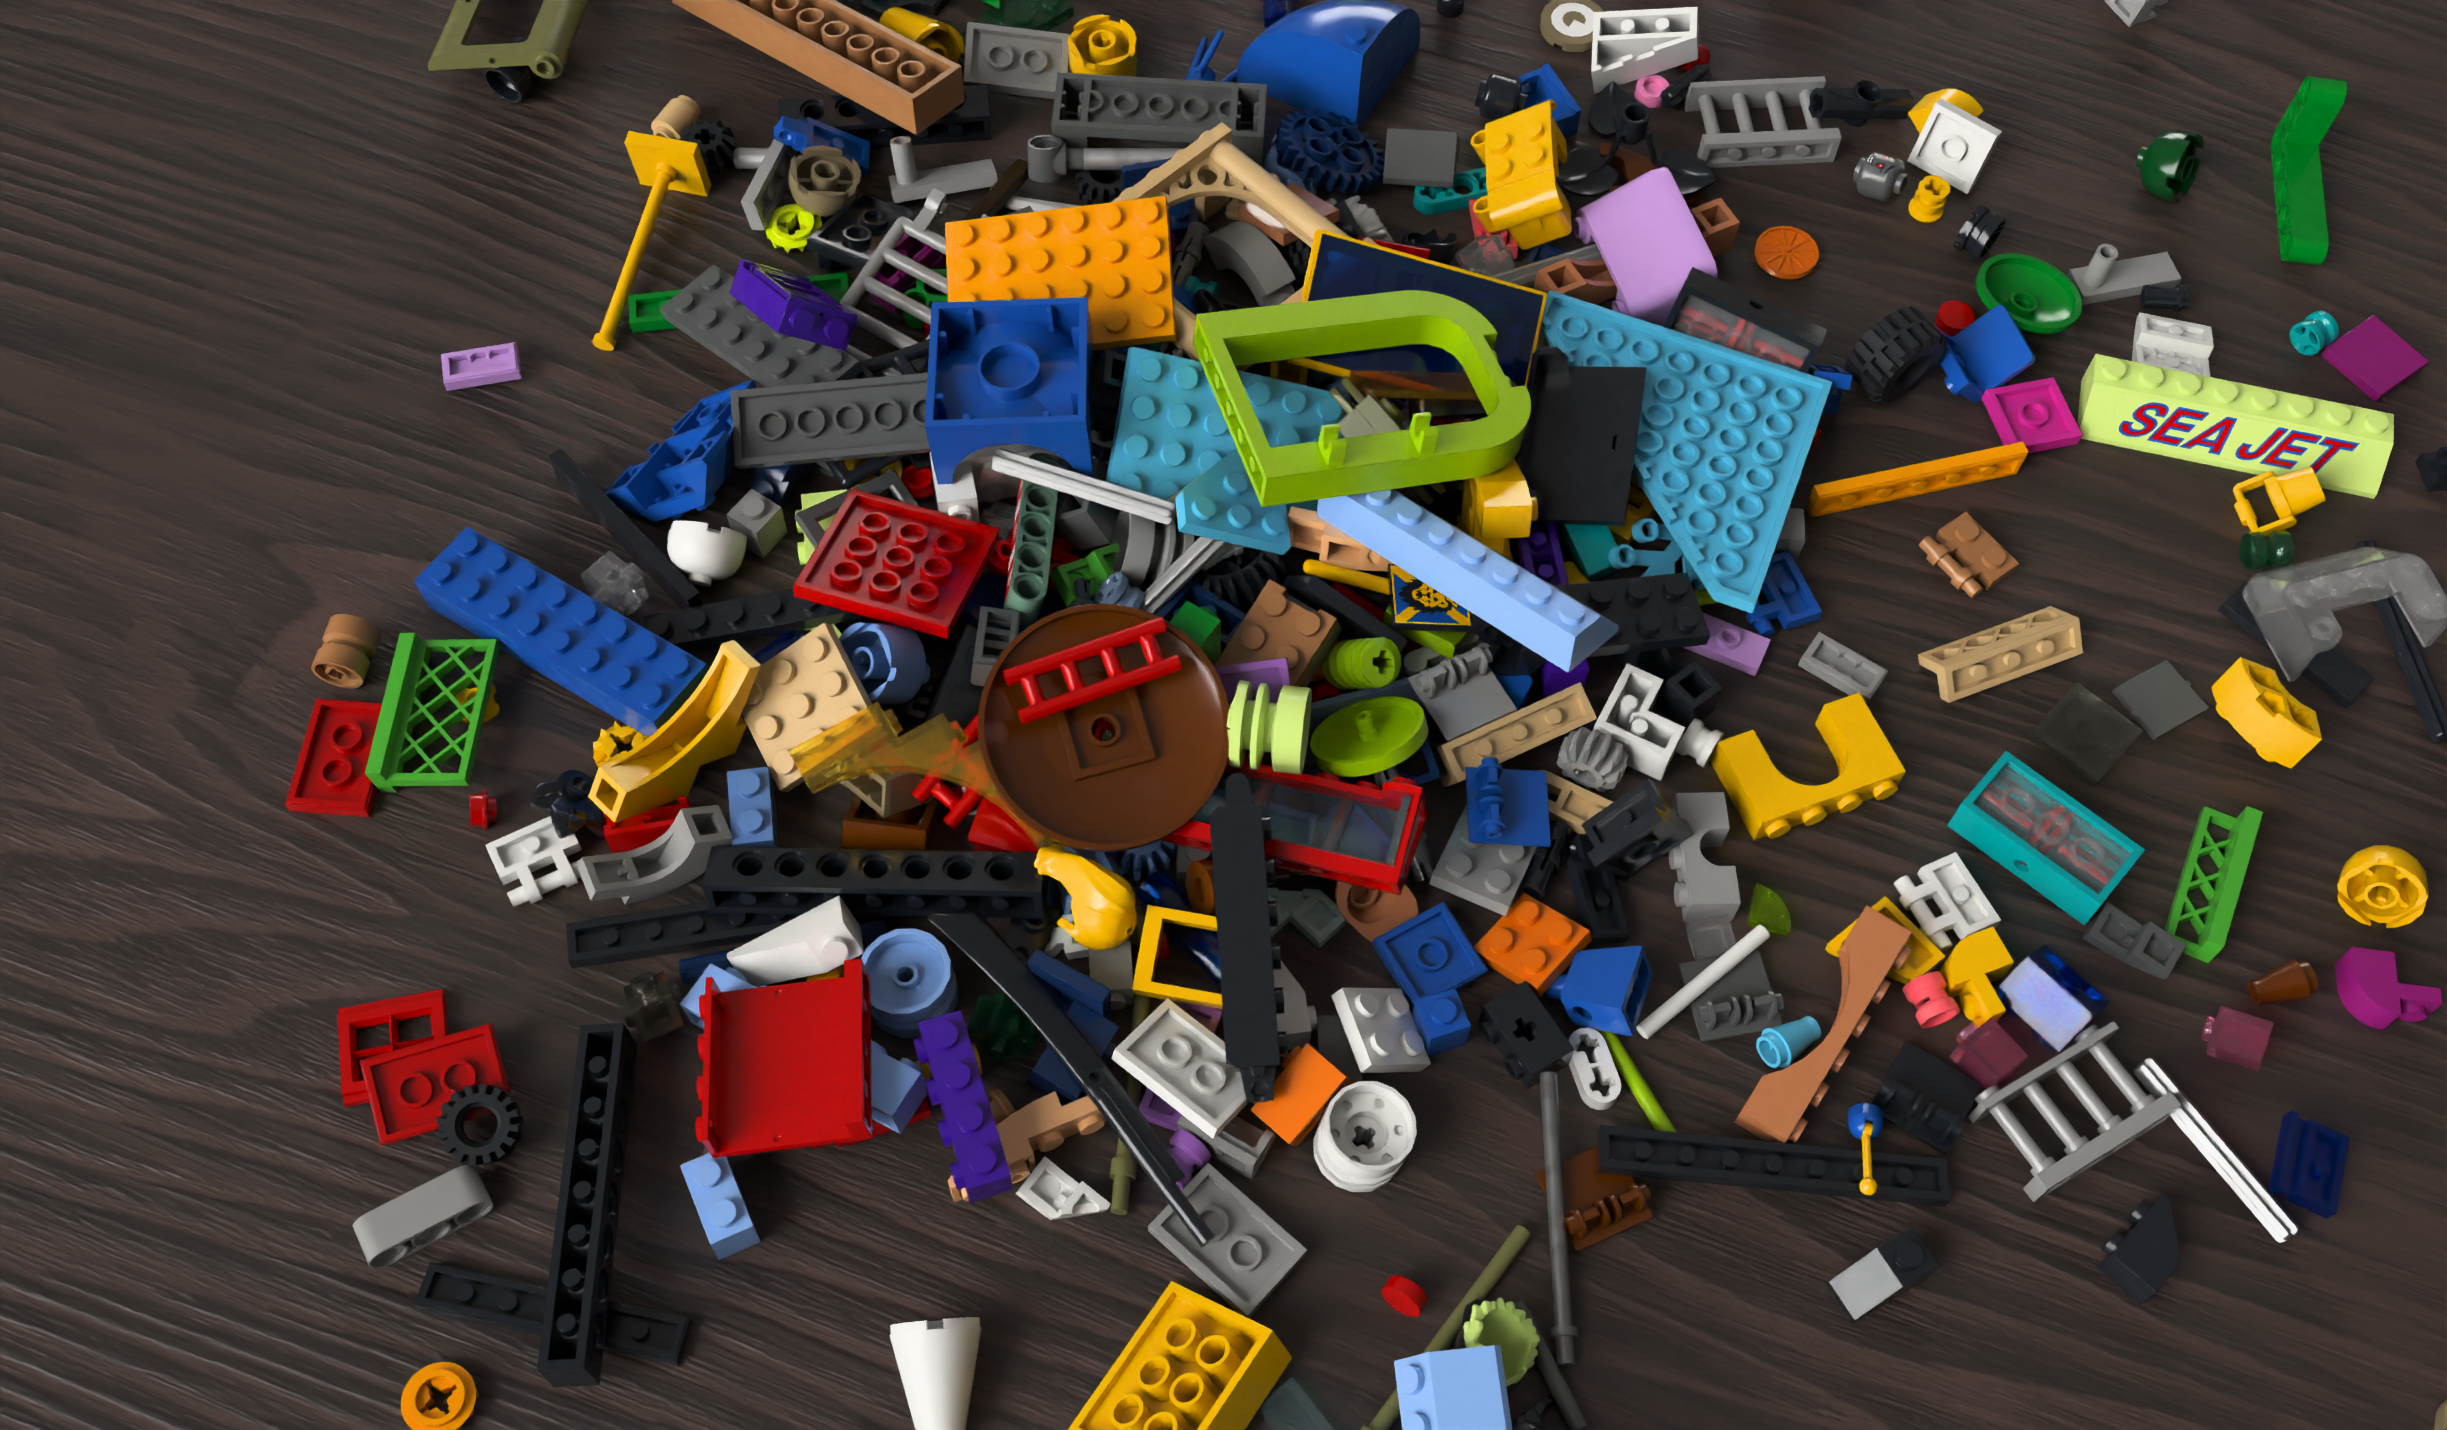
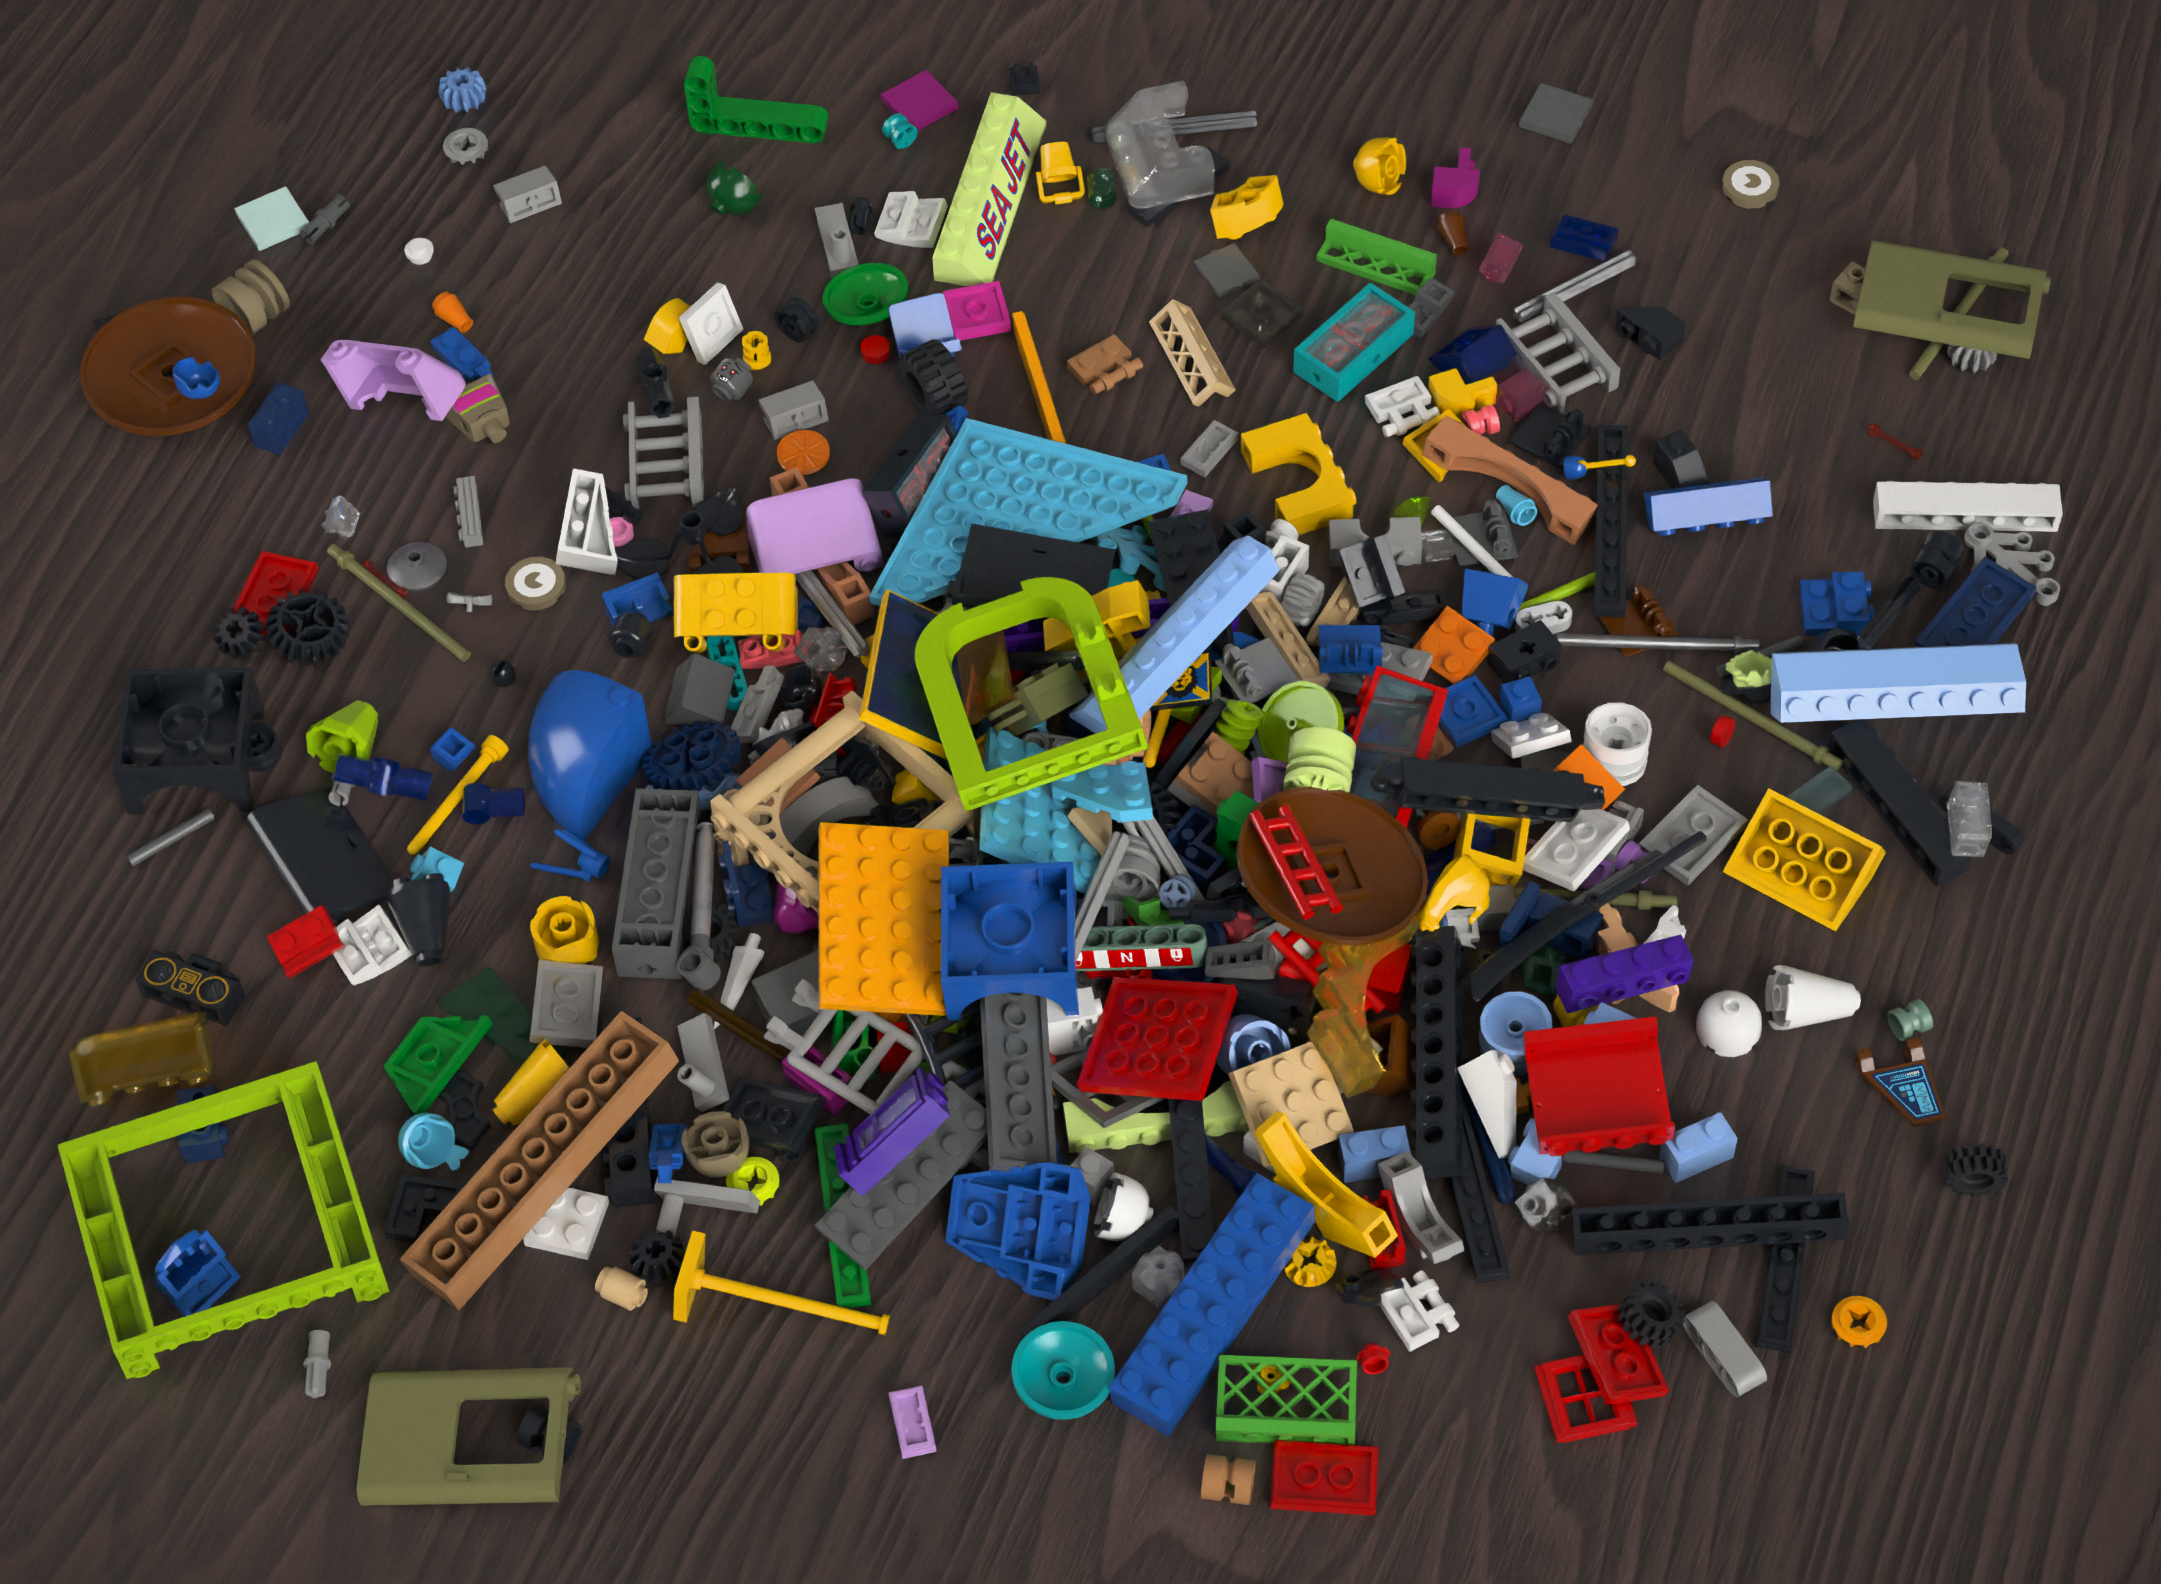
camera: 85 degrees left, 5 degrees down
(501, 475) = (1065, 1351): none -> teal dish
(761, 81) = (570, 1224): none -> white plate
(918, 1267) = (1729, 1023): none -> white cylinder
(1412, 212) = (757, 705): none -> light grey hinge
(1809, 1304) = (1708, 504): none -> brick
(1844, 236) = (794, 409): none -> light grey hinge

